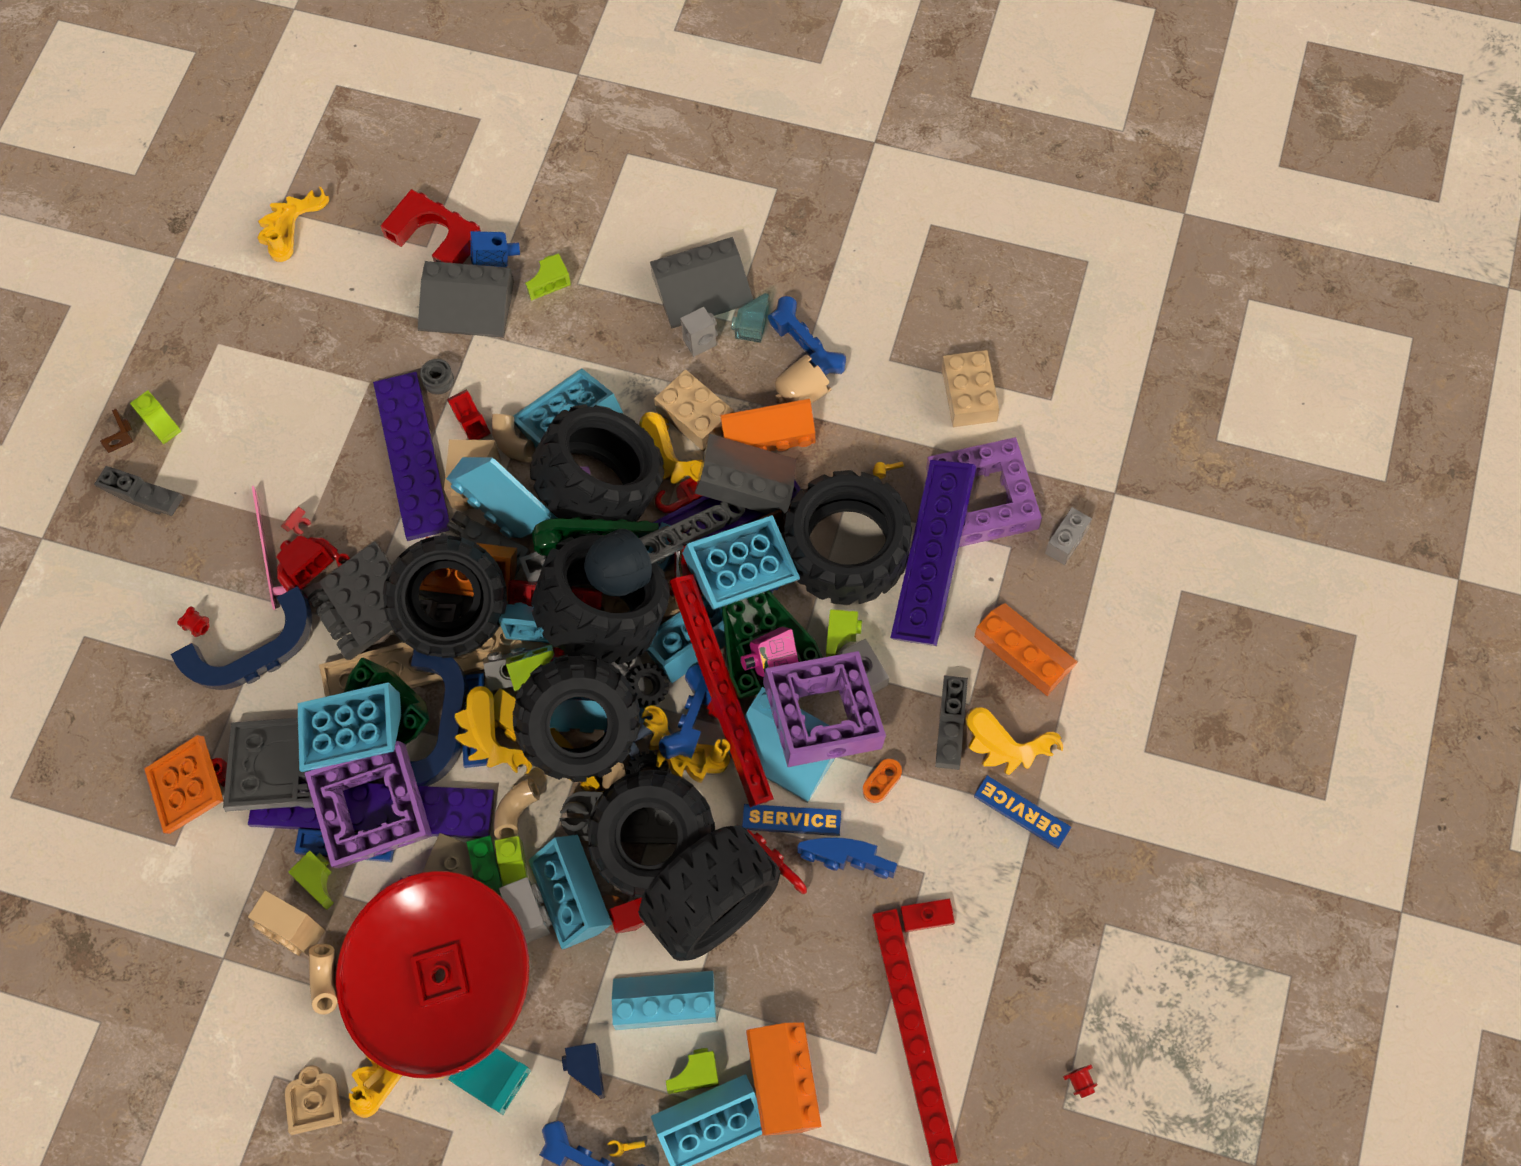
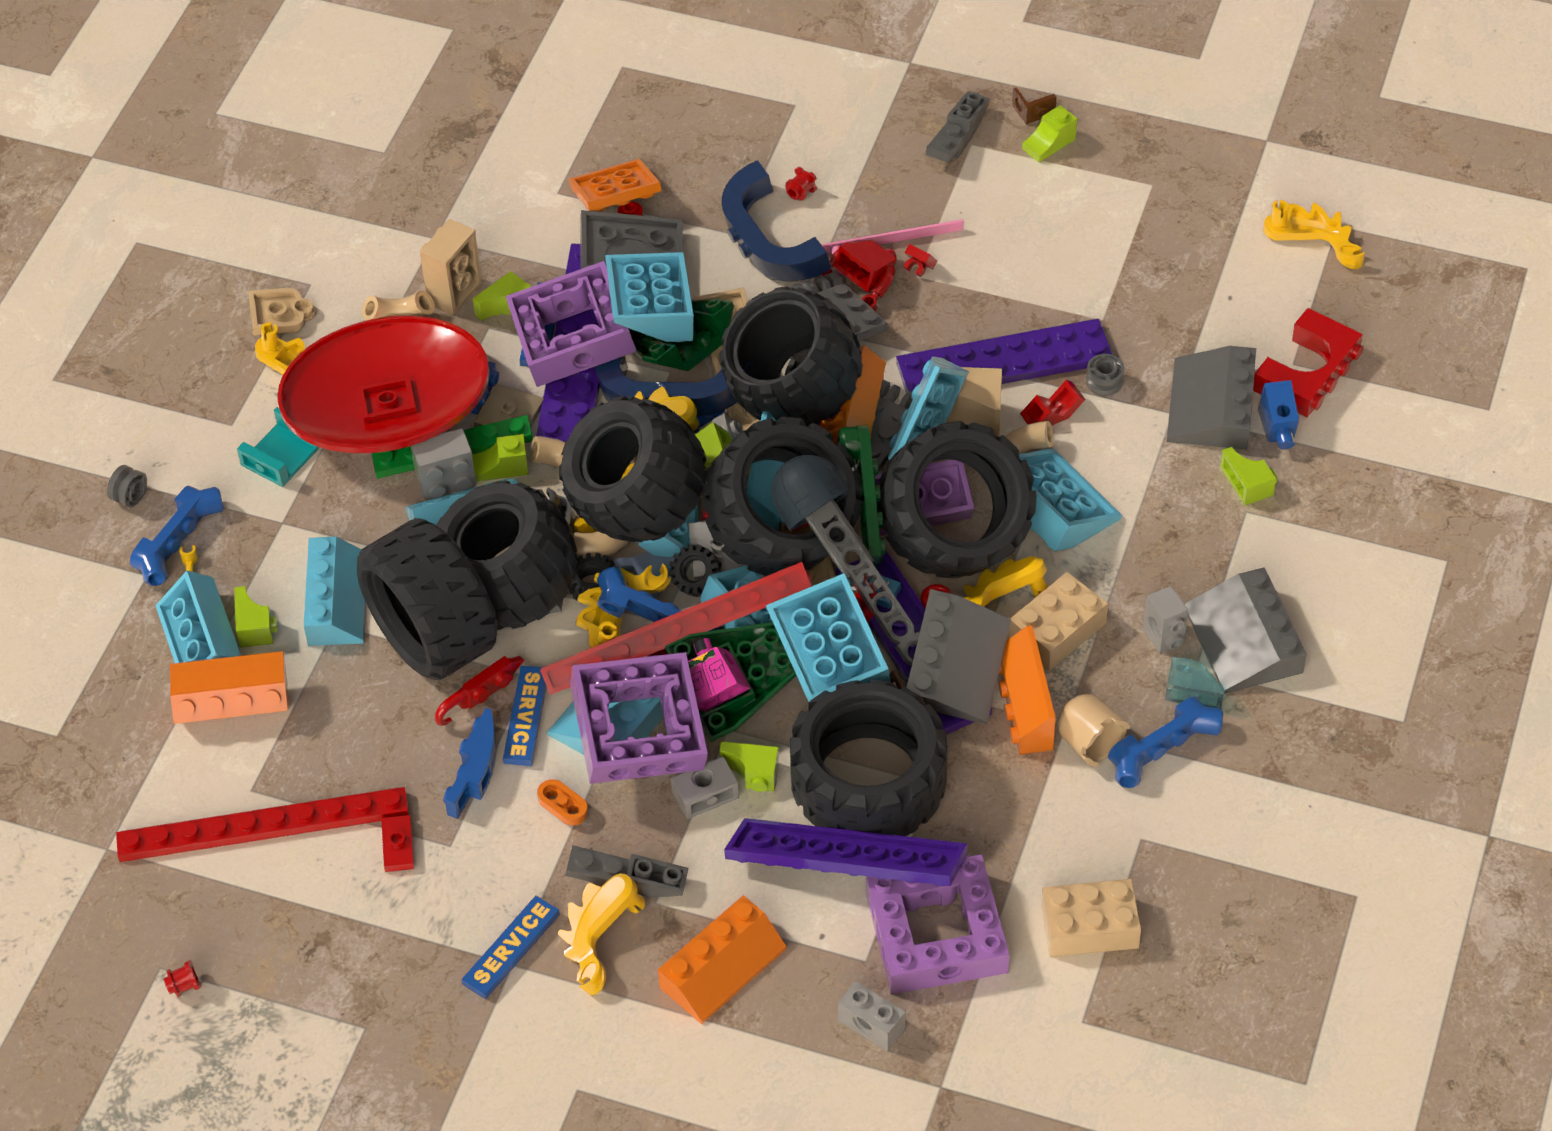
camera: 90 degrees right, 15 degrees down
(584, 1067) = (271, 526): dark blue slope -> none
(880, 468) = (975, 816): yellow hand -> none

